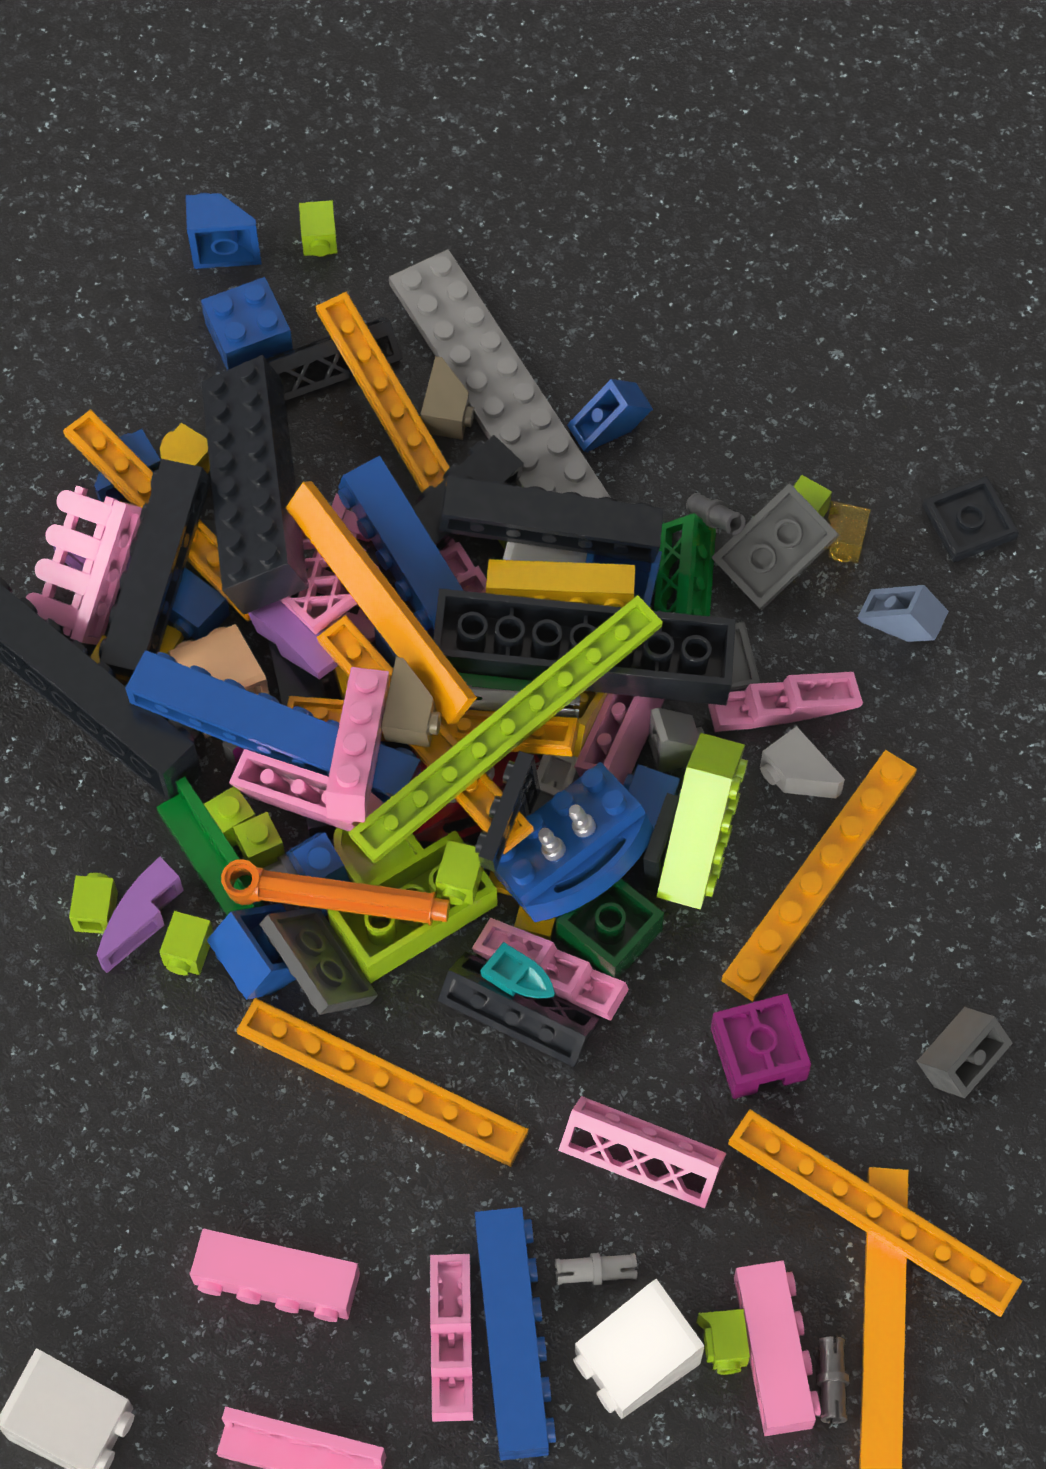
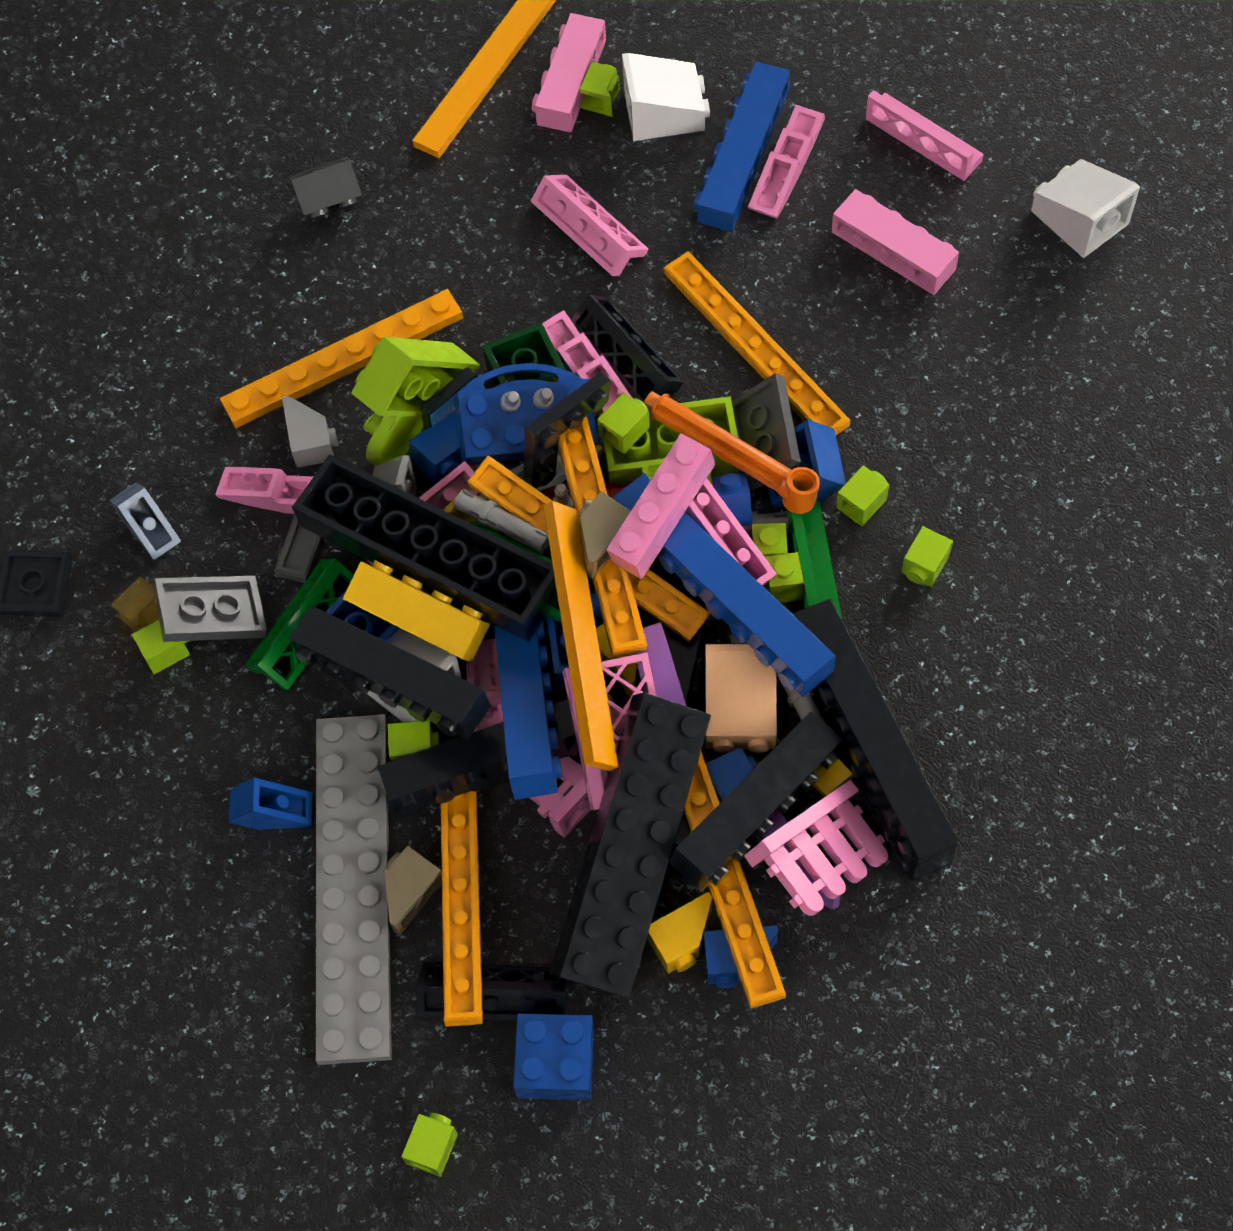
camera: 150 degrees left, 0 degrees up
(138, 913) = (891, 535): medium lavender slope -> none
(220, 232) = (537, 1173): blue slope -> none
(505, 729) = (517, 483): lime plate -> none
(517, 974) = (616, 352): teal plate -> none
(596, 1269) = (664, 163): light grey pin -> none
(715, 513) = (239, 662): flat silver pin -> none
(760, 1045) = (465, 243): magenta piece -> none
(832, 1380) = (542, 44): flat silver pin -> none
(875, 1213) = (455, 123): light orange tile -> none

